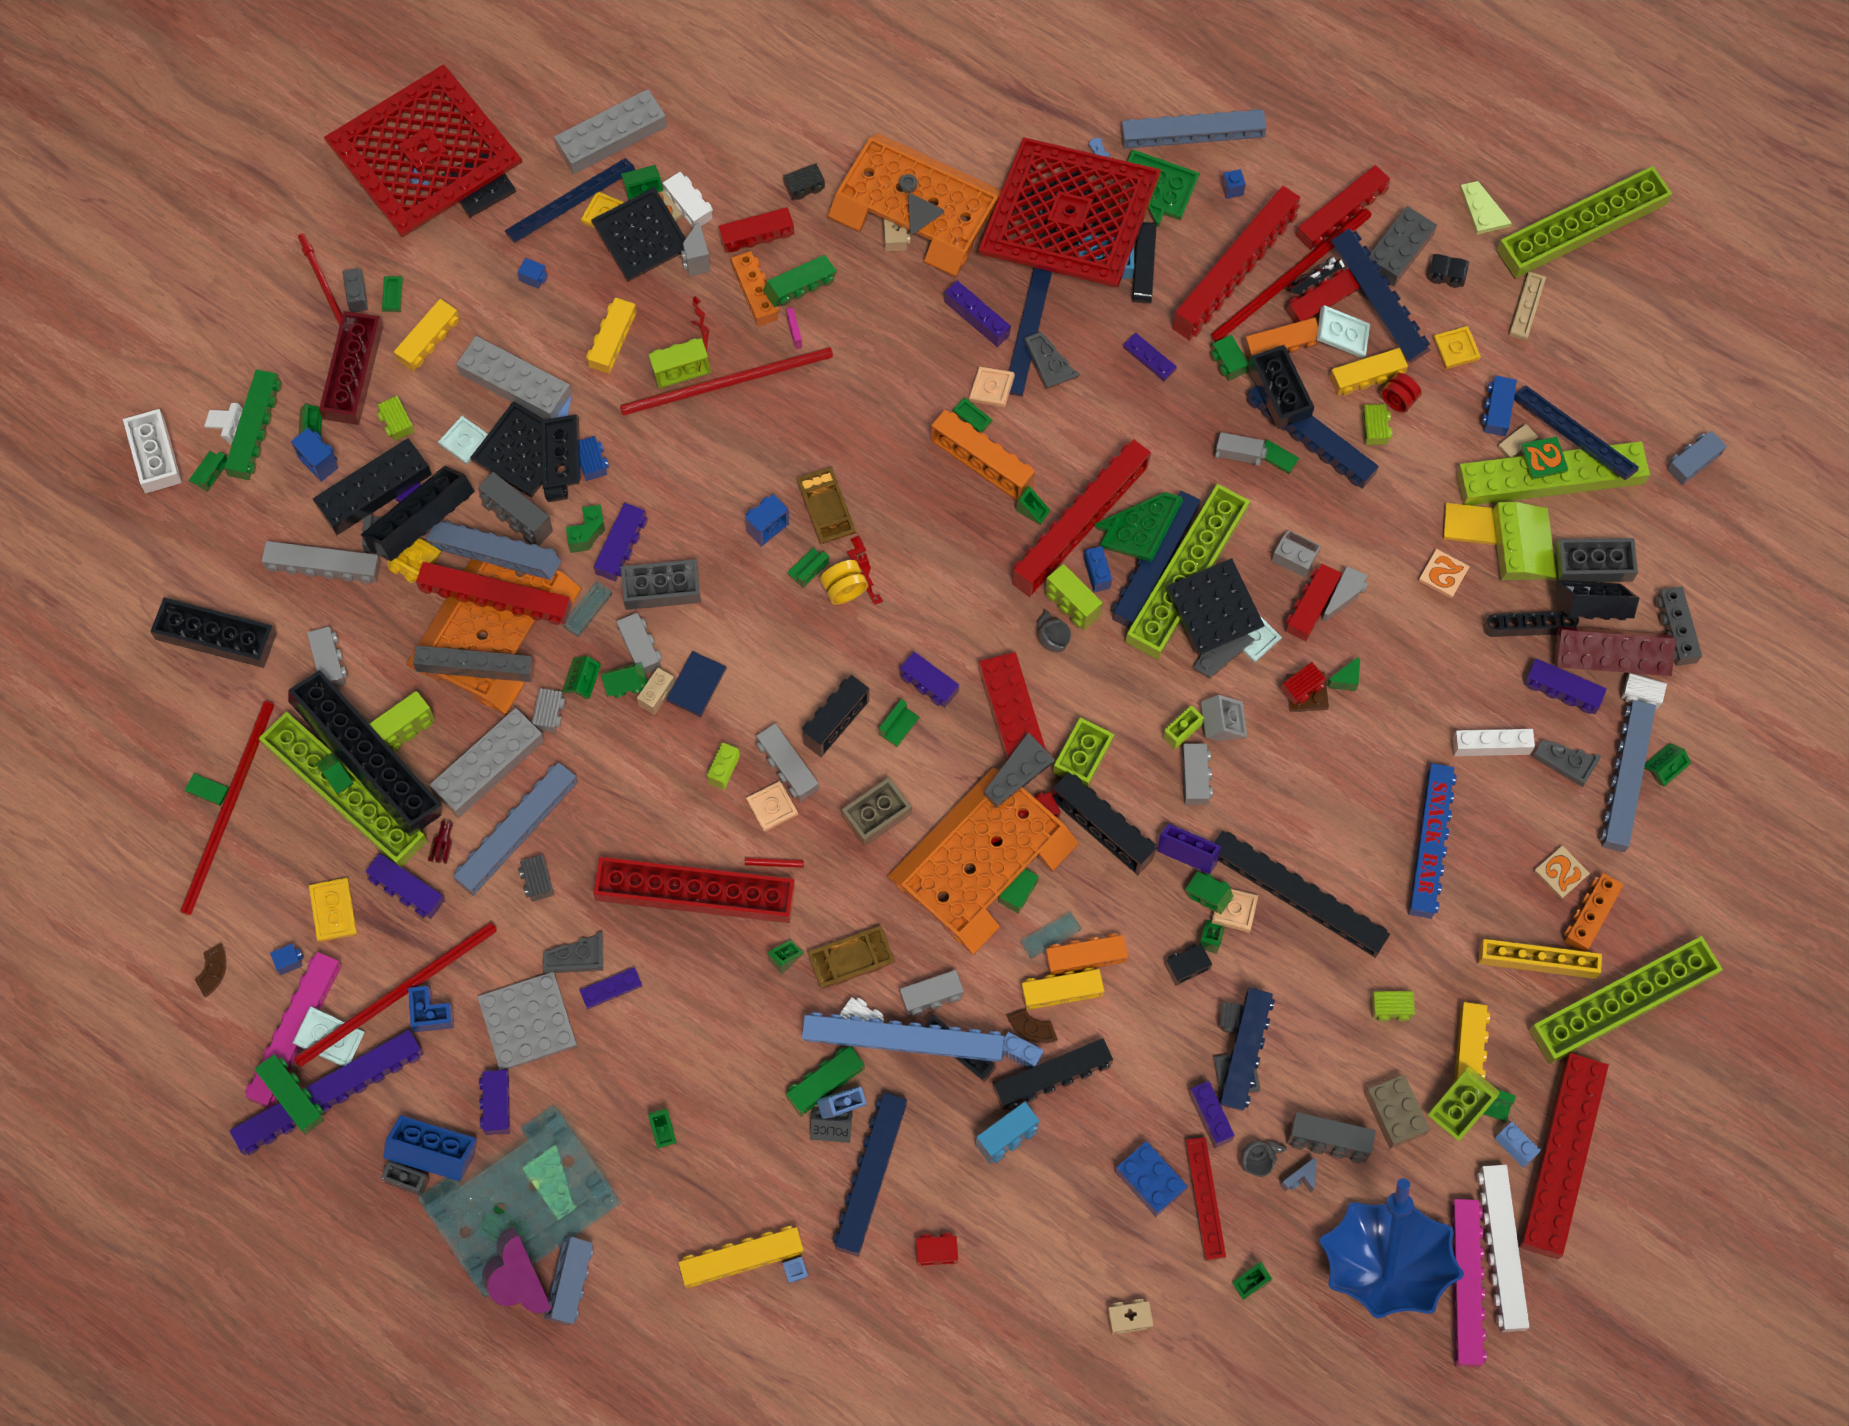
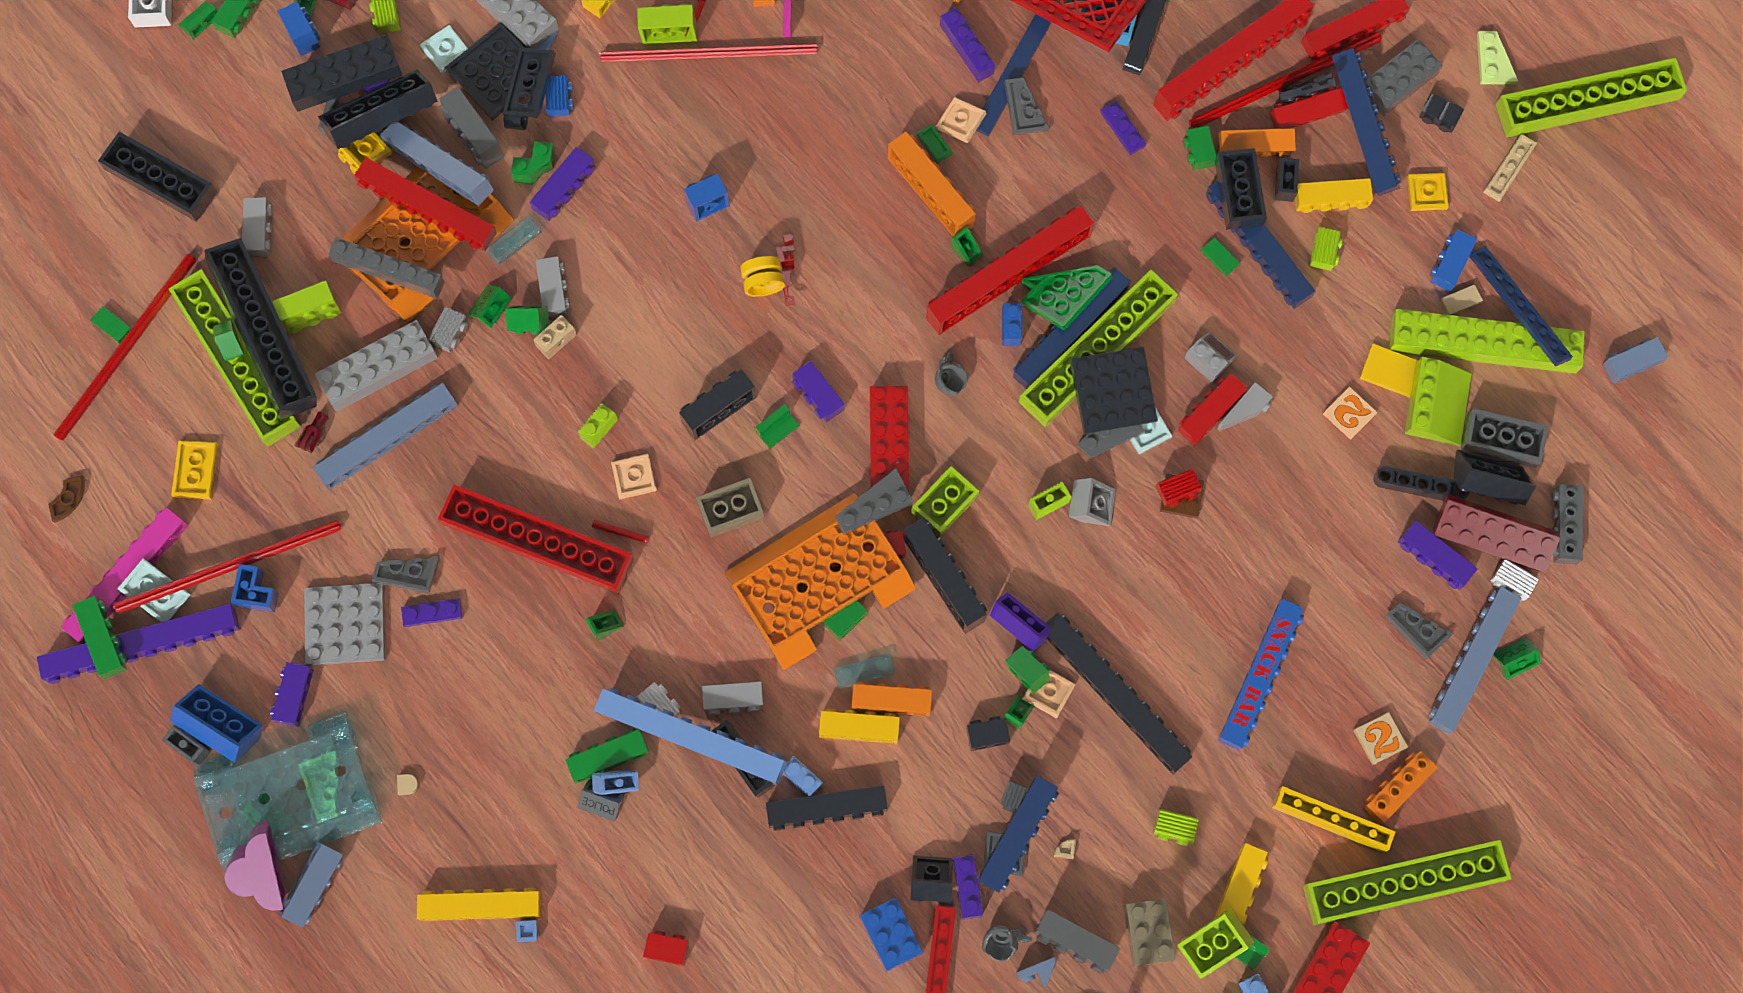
camera: 15 degrees right, 5 degrees up
(287, 959) = (137, 506): blue brick -> none
(321, 562) = (277, 133): light grey brick -> none
(405, 886) = (266, 464): dark purple brick -> none
(537, 878) = (391, 489): dark grey brick -> none
(635, 1160) = (407, 784): none -> tan tile
(660, 584) = (588, 234): dark grey brick -> none
(662, 1128) = (440, 760): green slope -> none
(696, 684) = (596, 339): dark blue tile -> none
(787, 763) = (659, 437): light grey brick -> none
(809, 567) = (735, 253): green panel -> none
(826, 505) = (768, 197): pearl gold slope -> none
(851, 957) = (666, 642): pearl gold slope -> none
(871, 1174) = (624, 858): dark blue brick -> none
(1007, 1133) = (765, 854): dark azure brick -> none
(1031, 1029) = (819, 757): reddish brown tile -> none
(1073, 597) = (978, 346): lime brick -> none
(1174, 1116) = (931, 879): none -> black slope
(1196, 774) = (1050, 549): light grey brick -> none
(1241, 448) = (1185, 240): light grey brick -> none
(1294, 1054) = (1066, 849): none -> tan tile
(1321, 367) = (1286, 179): none -> black brick
(1343, 331) = (1319, 149): light aqua tile -> none
(1347, 677) = (1223, 492): green slope -> none
(1401, 392) = (1358, 223): red wheel -> none
(1493, 742) = (1349, 593): white brick -> none
(1544, 458) = (1481, 323): green tile -> none

